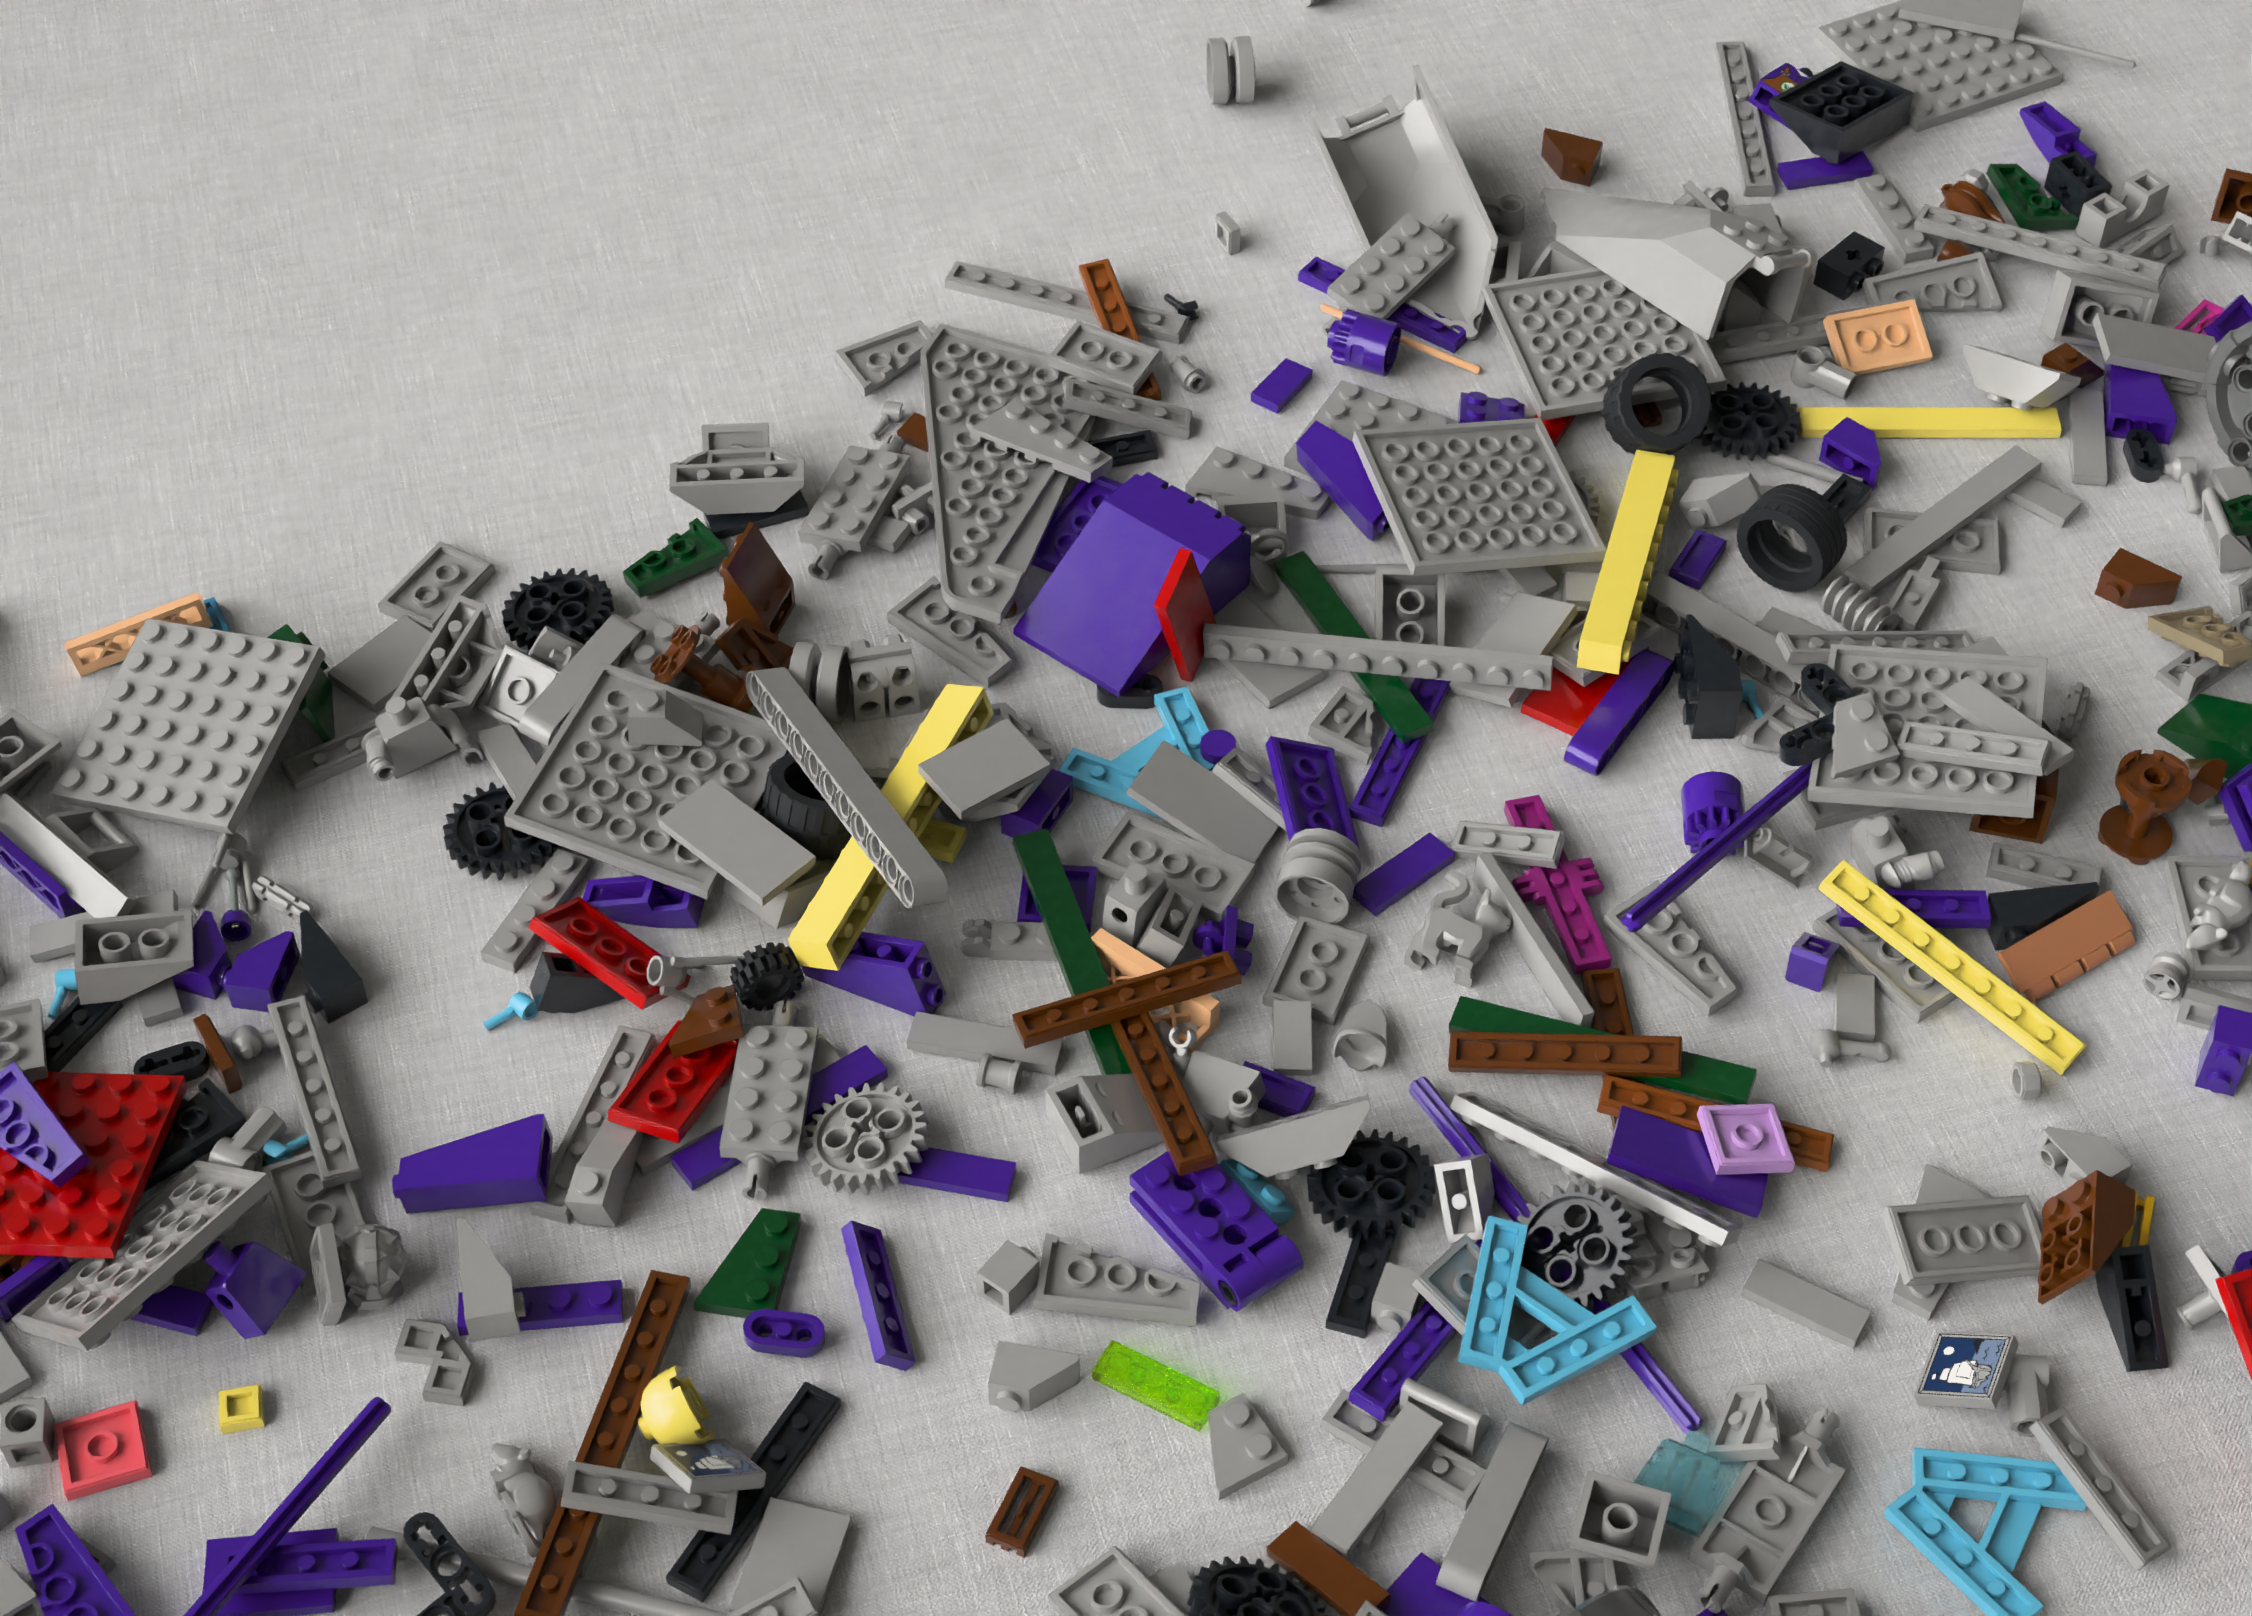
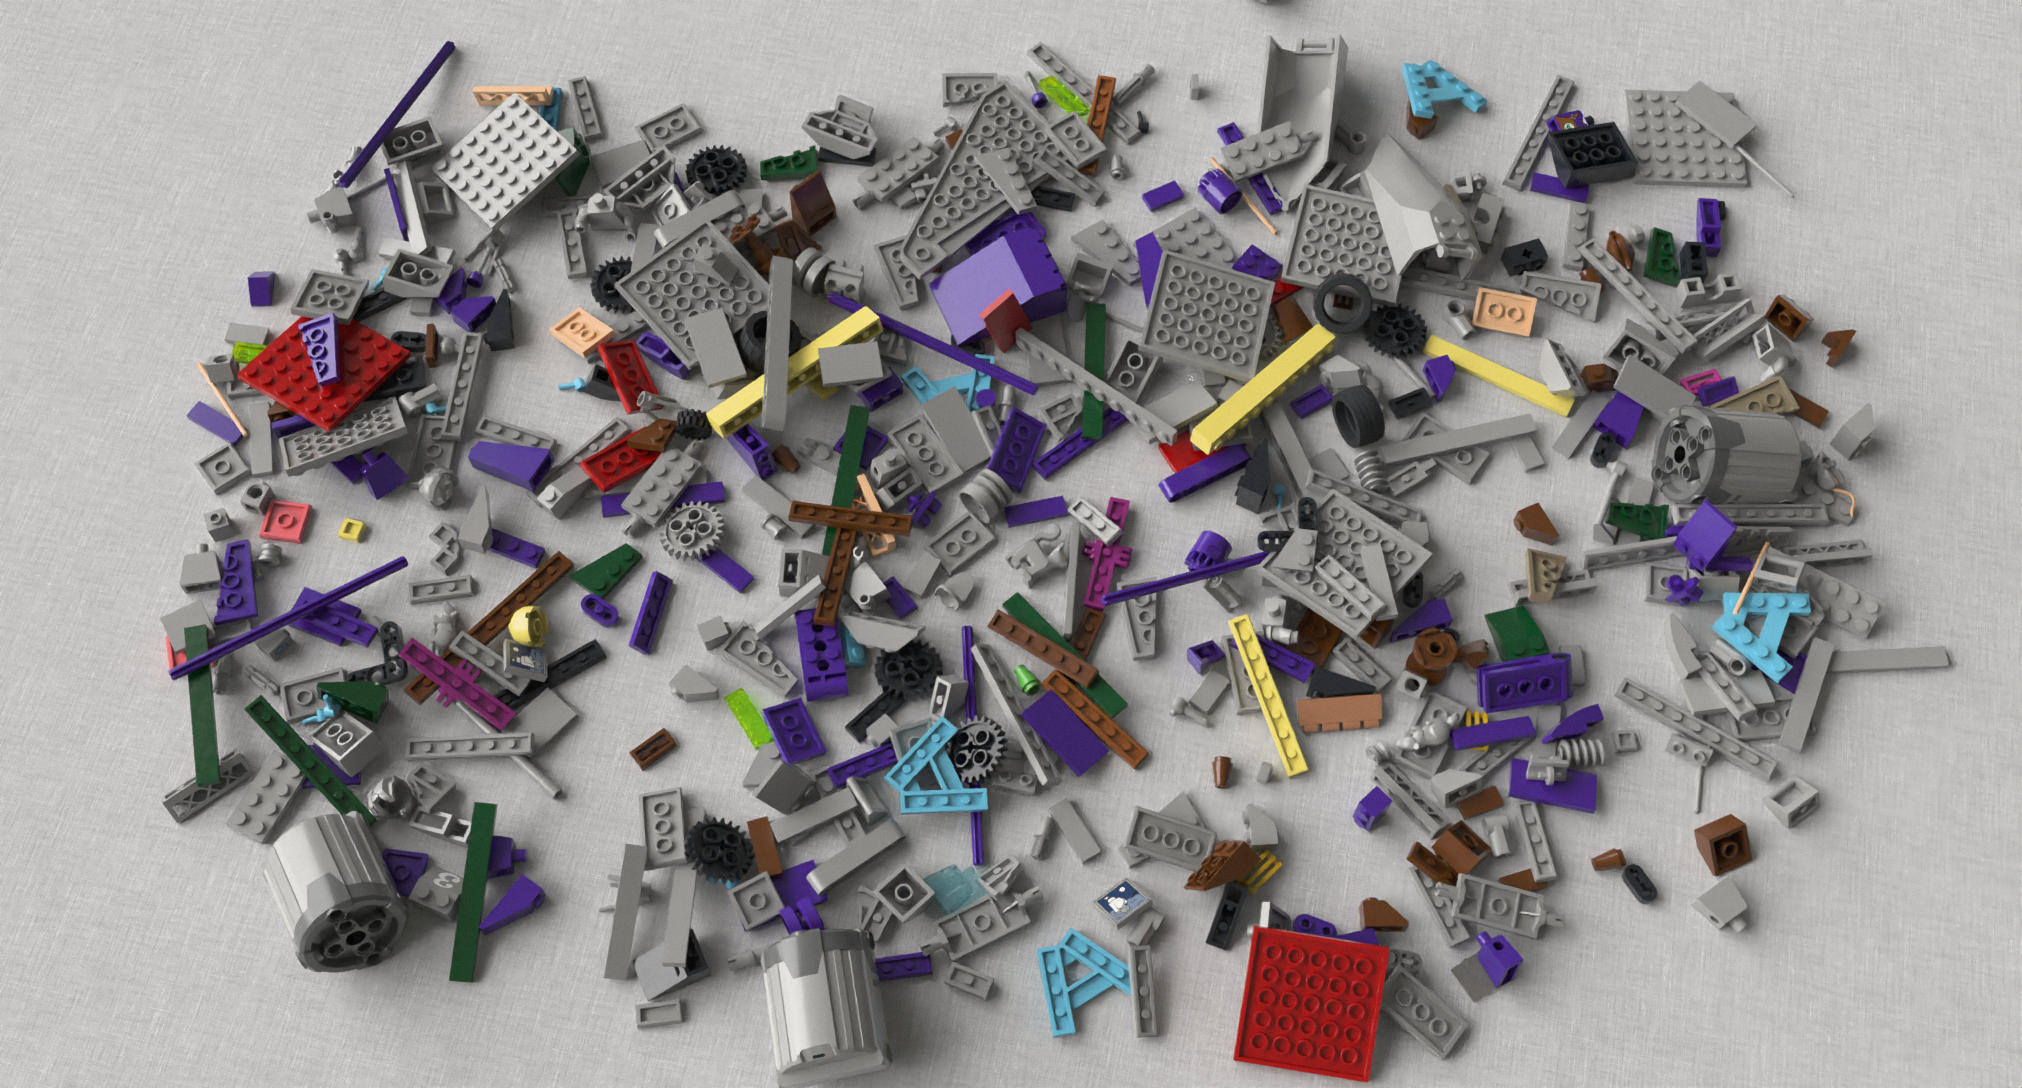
camera: 25 degrees right, 15 degrees up
(107, 1516) = (270, 555): none -> light grey wheel
(269, 606) = (585, 109): none -> light grey tile
(327, 1274) = (413, 485): light grey tile -> none
(376, 807) = (571, 245): none -> light grey plate
(416, 1134) = (511, 434): none -> light grey tile
(469, 1431) = (441, 589): none -> light grey tile
(481, 922) = (582, 332): none -> light nougat plate
(610, 1558) = (457, 684): none -> magenta hinge
(954, 967) = (785, 458): none -> reddish brown cone
(1005, 331) = (1038, 99): none -> hinge
(1038, 314) = (1063, 96): none -> clear neon green plate
(1096, 704) = (939, 346): none -> dark purple axle
(1117, 1172) = (789, 607): none -> light grey tile
(1137, 256) = (1137, 80): none -> light grey axle
(1250, 1366) = (793, 732): none -> dark purple plate
(1251, 743) = (1006, 403): none -> light grey pin
(1311, 1450) = (785, 788): none -> light grey slope
(1571, 1116) = (1028, 682): none -> bright green cone
(1575, 111) = (1450, 89): none -> medium azure plate
(1591, 461) = (1291, 319): none -> reddish brown slope
(1745, 1139) = (1099, 735): lavender tile -> none
(1764, 1336) = (1042, 837): none -> light grey axle
(1960, 849) = (1316, 638): none -> reddish brown tile
(1962, 1107) = (1222, 770): none -> reddish brown cone
(2092, 767) = (1430, 615): none -> dark purple slope
(2124, 858) = (1403, 684): none -> light grey brick
(2192, 251) = (1727, 335): none -> light grey fence

